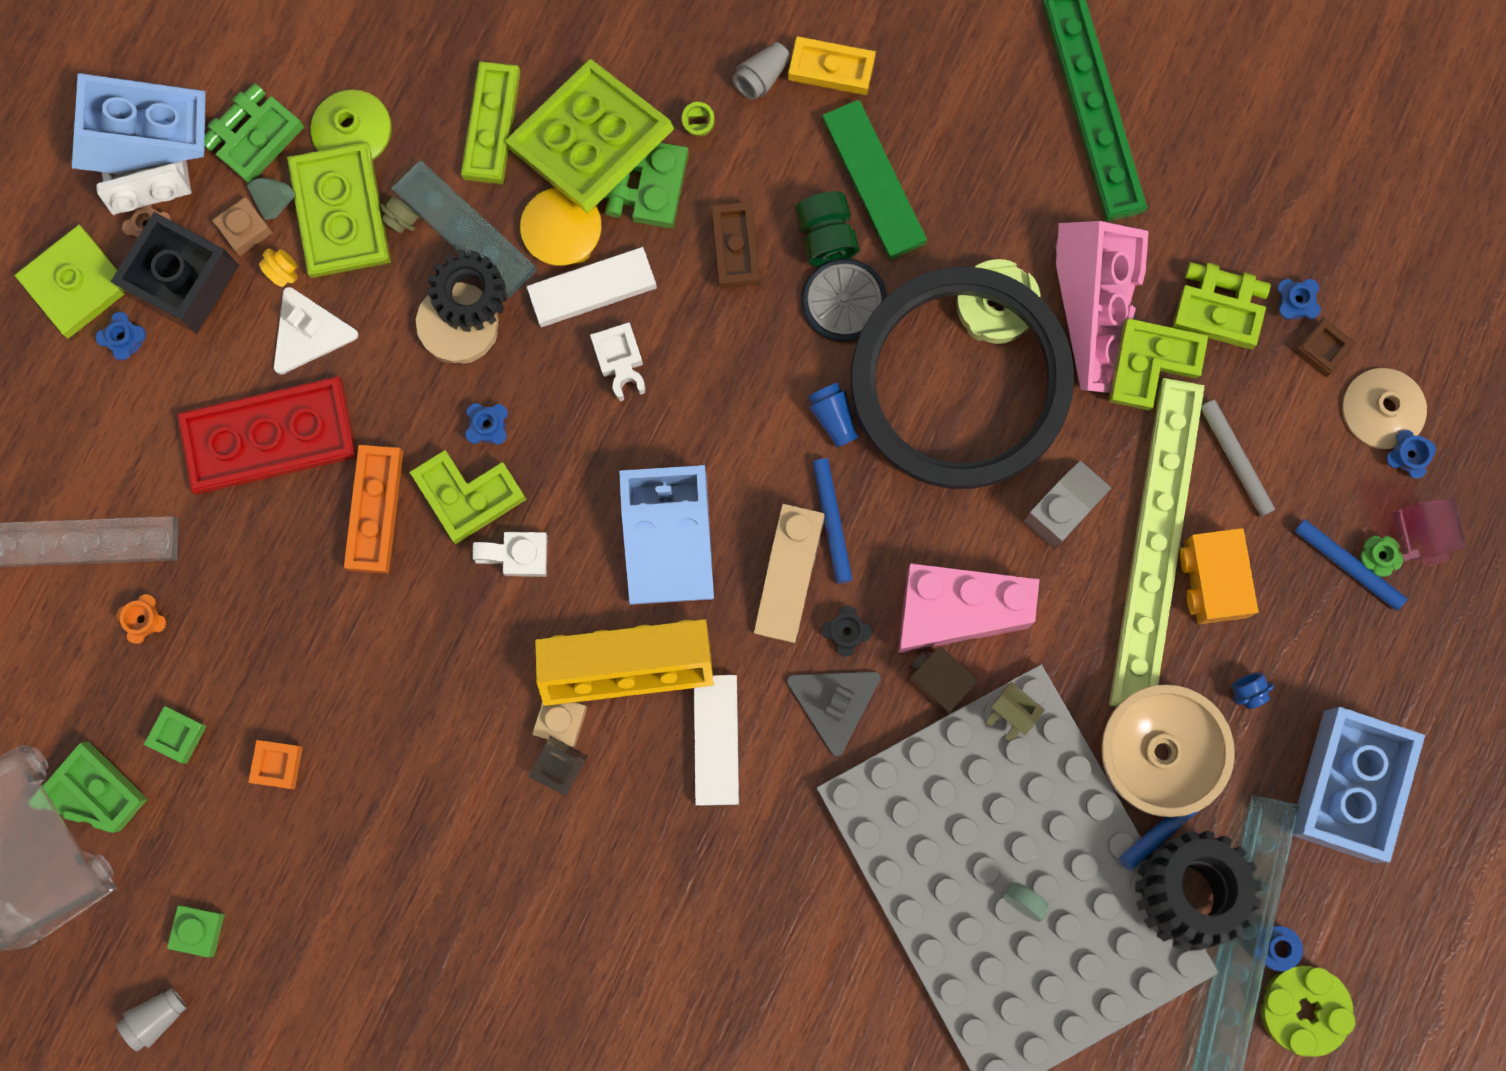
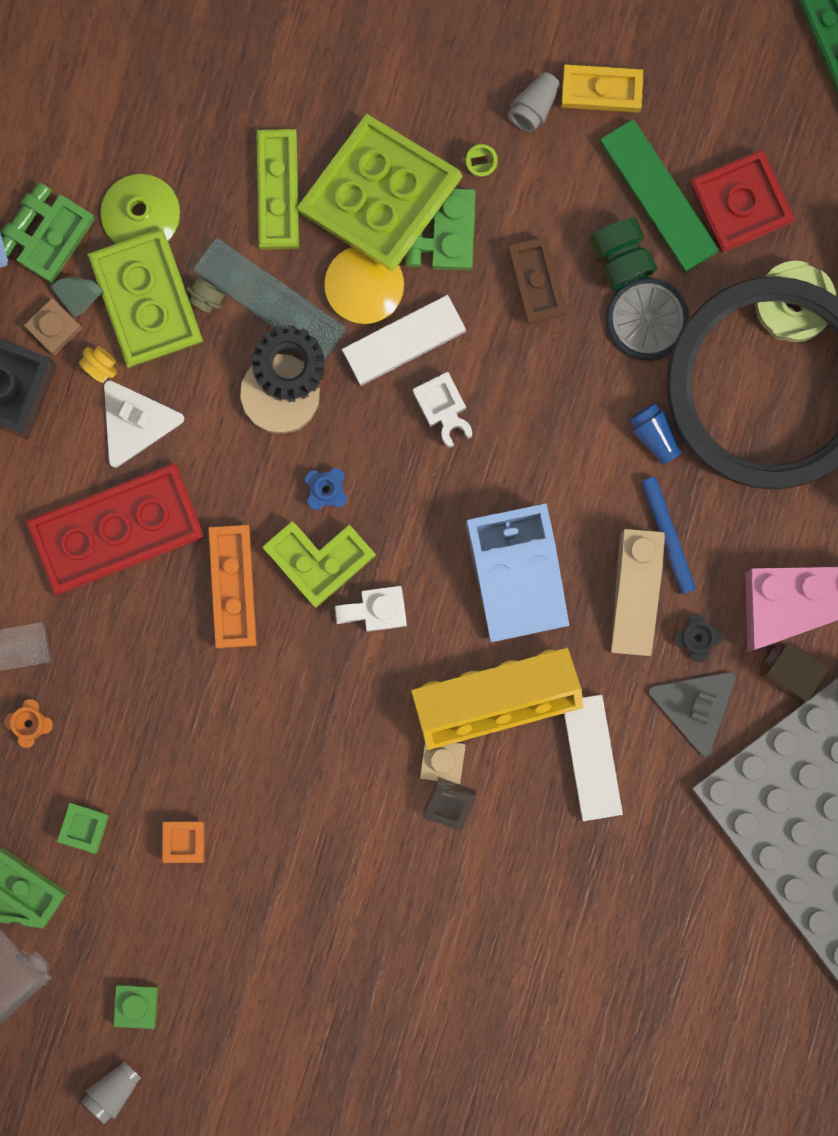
camera: 20 degrees left, 5 degrees up
(957, 195) = (742, 201): none -> red plate

